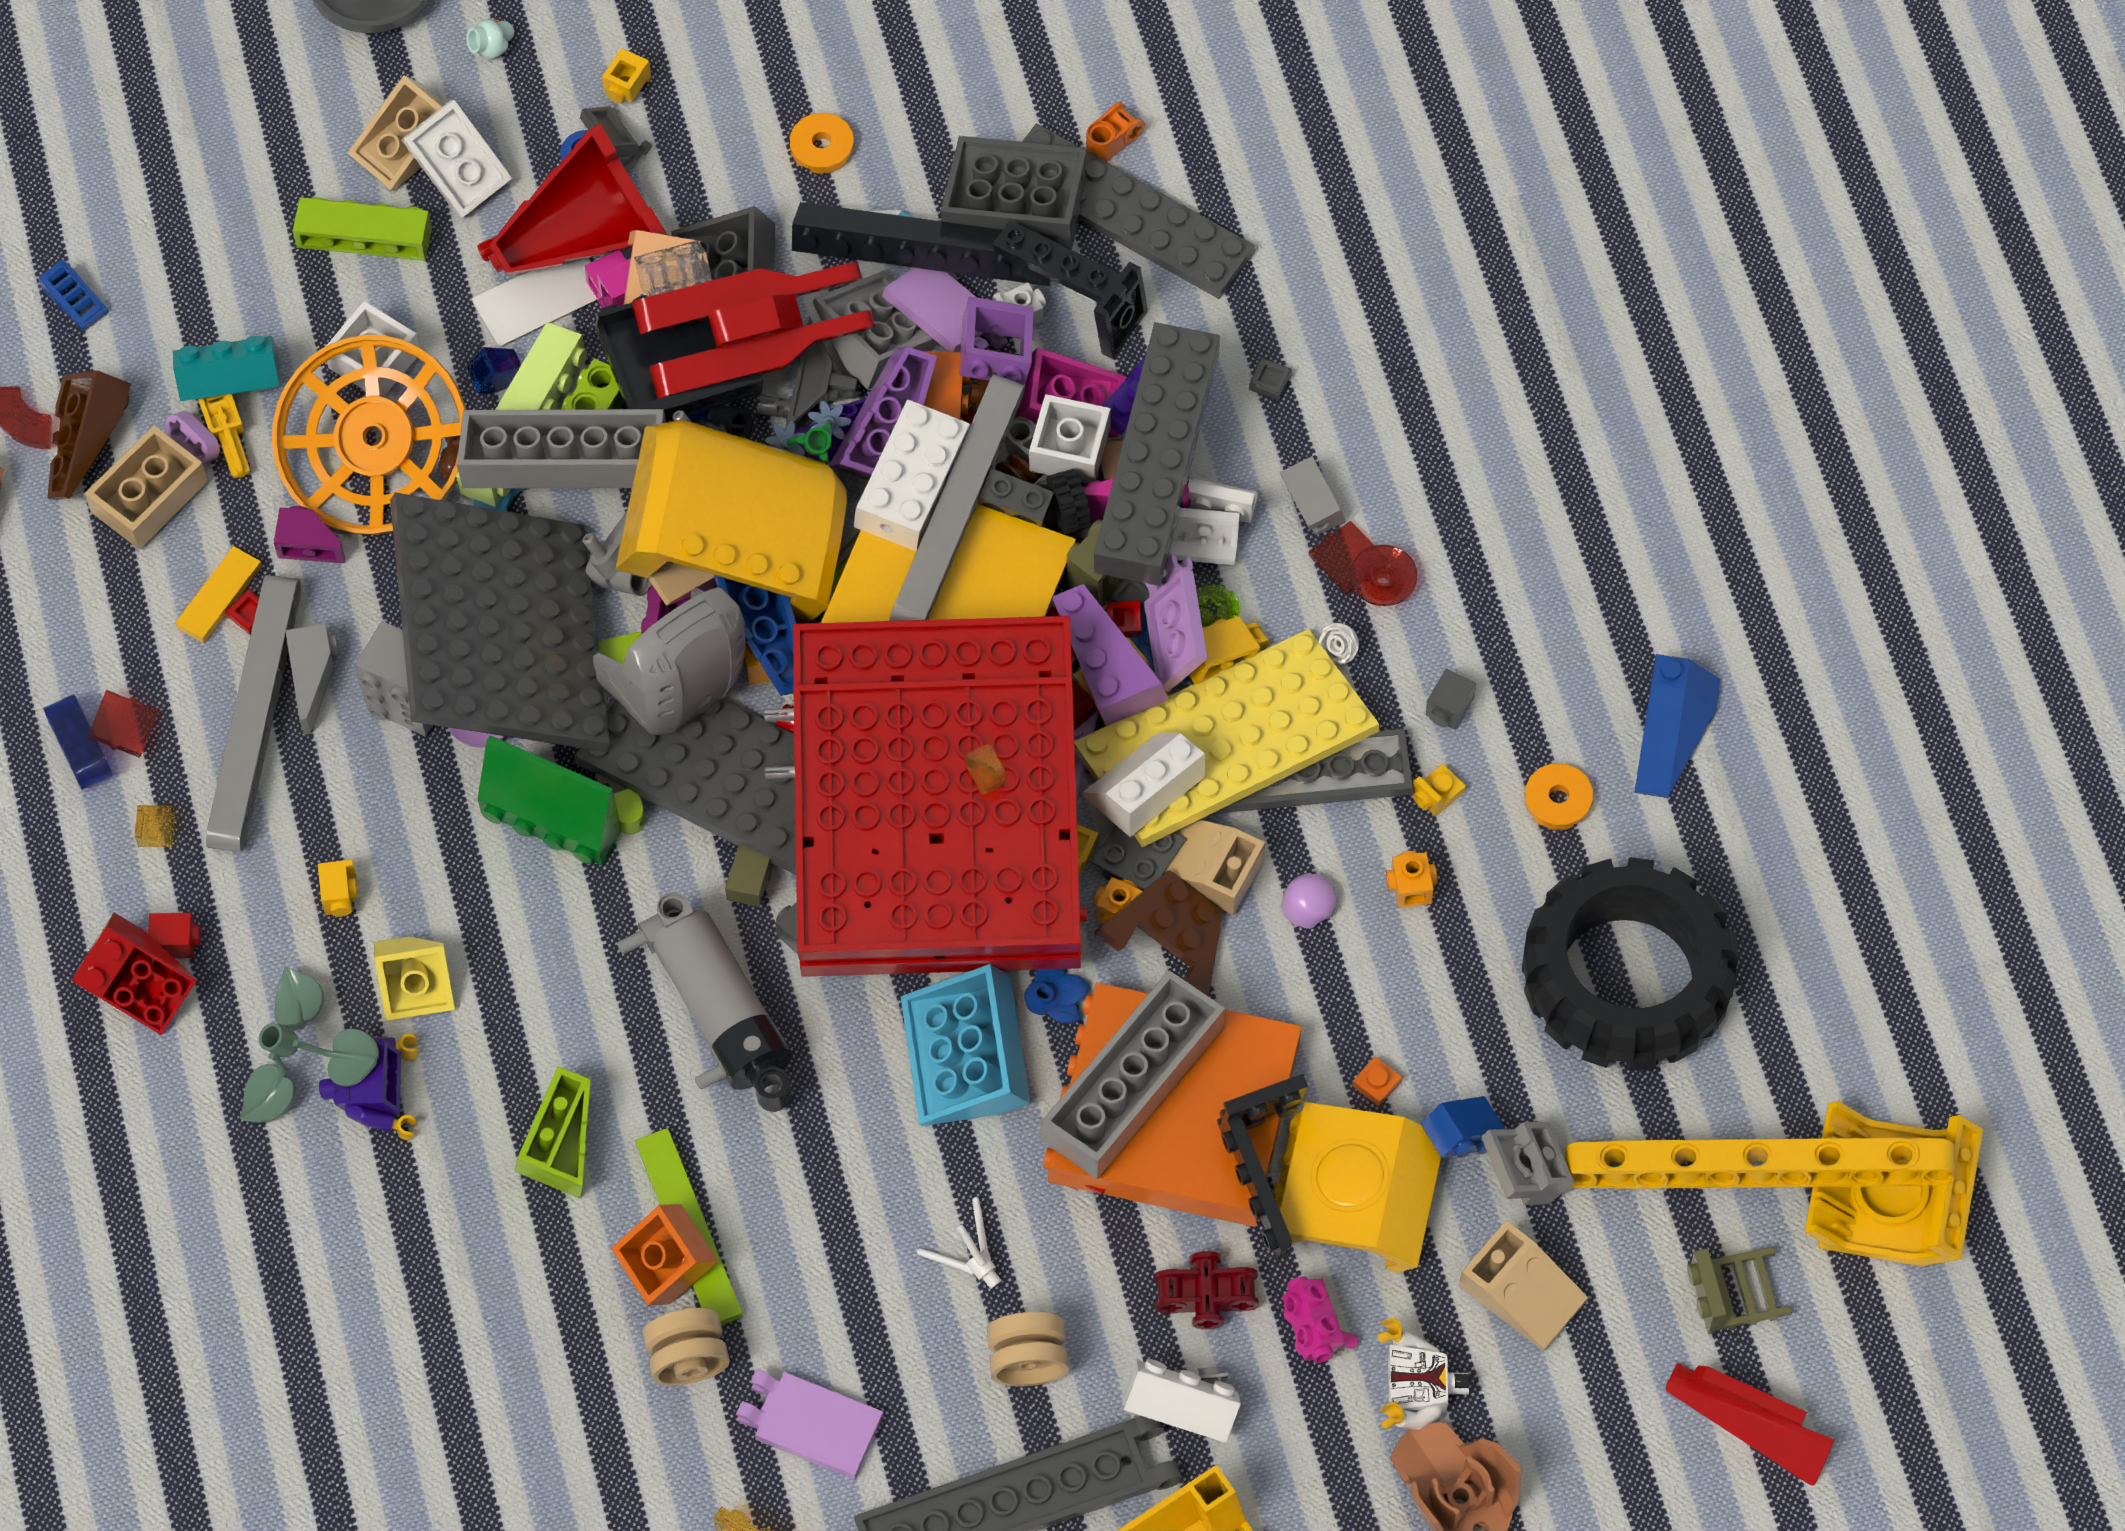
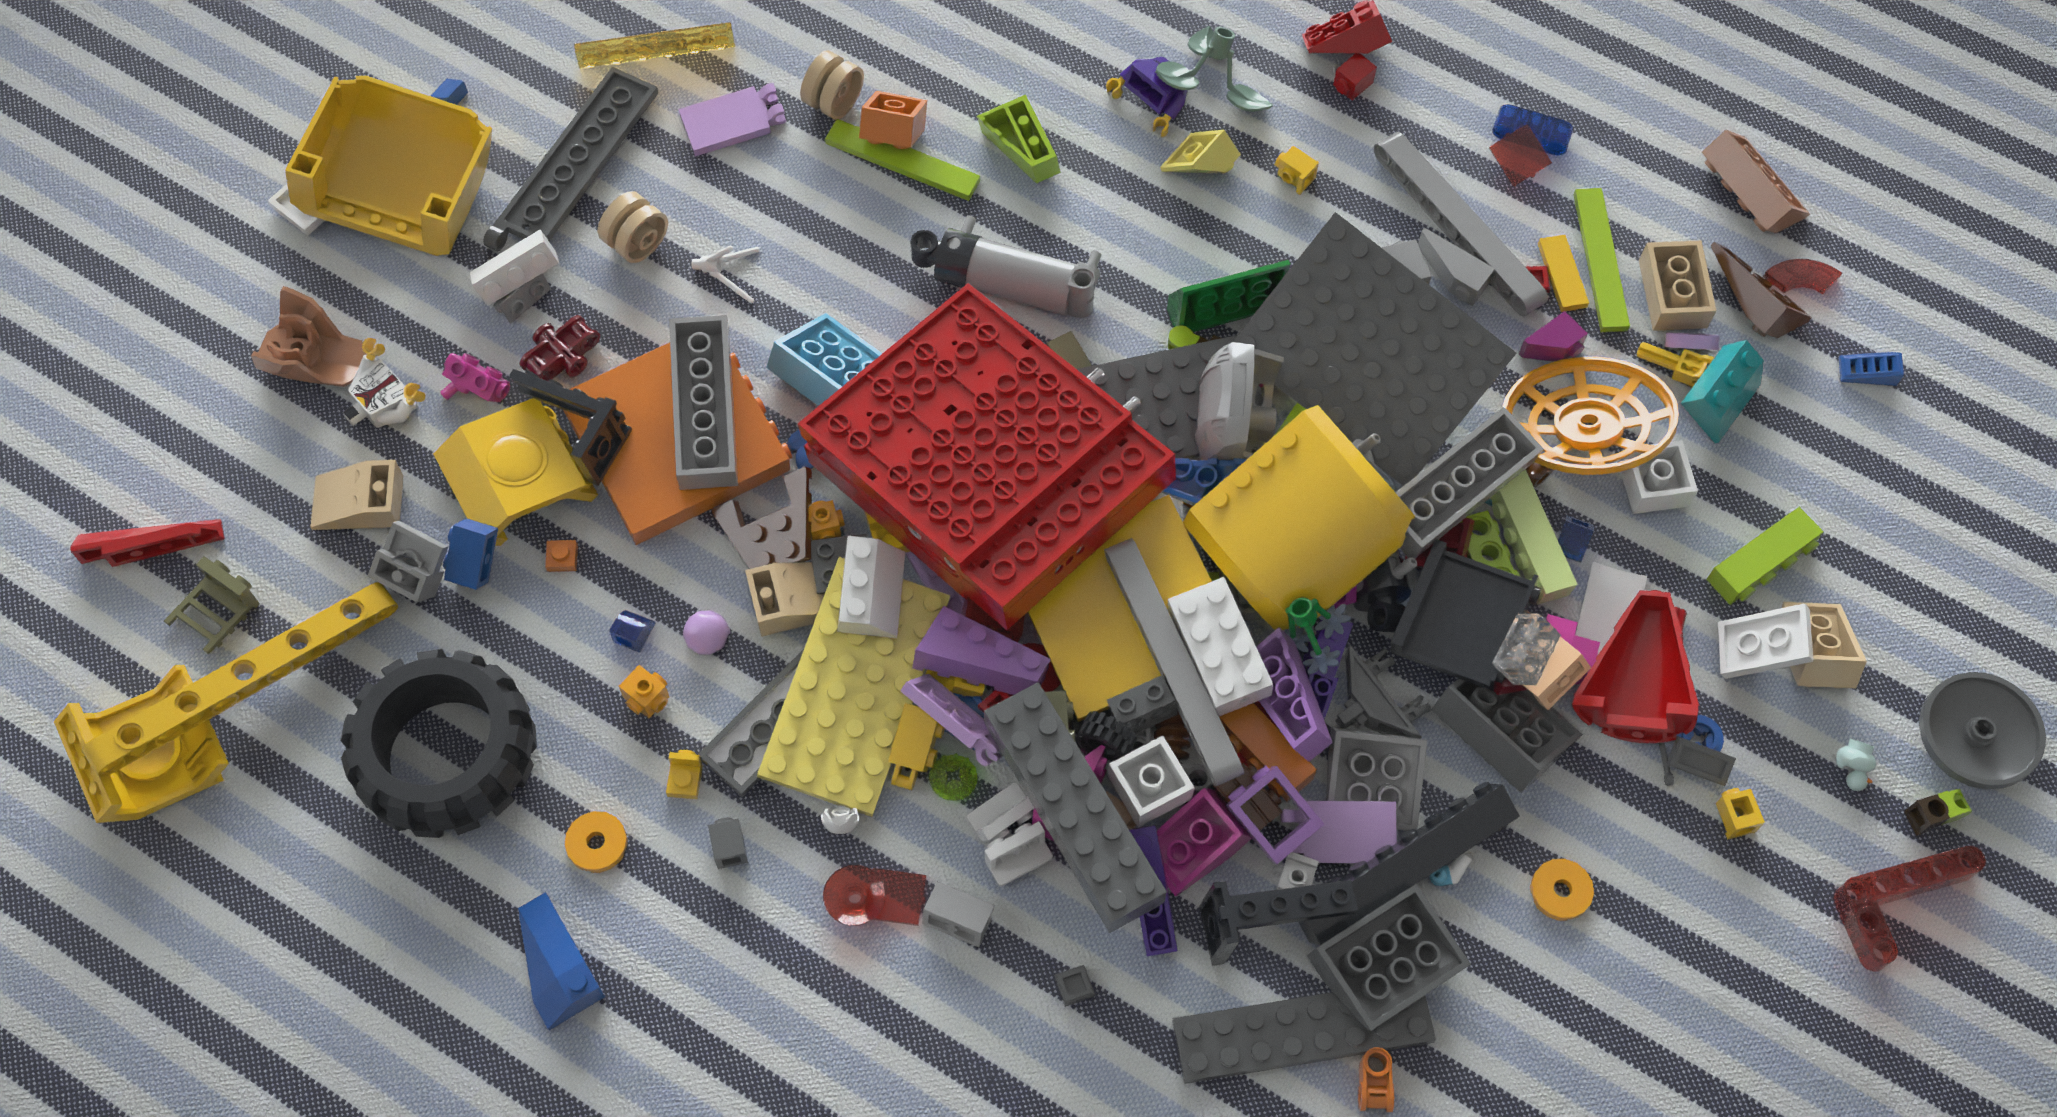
camera: 135 degrees right, 0 degrees up
(154, 826) = (1436, 123): clear yellow slope -> none
(169, 578) = (1601, 260): none -> lime tile
(741, 310) = (1422, 653): red beam -> none
(985, 769) = (954, 458): clear yellow slope -> none
(1372, 953) = (631, 630): none -> clear blue brick

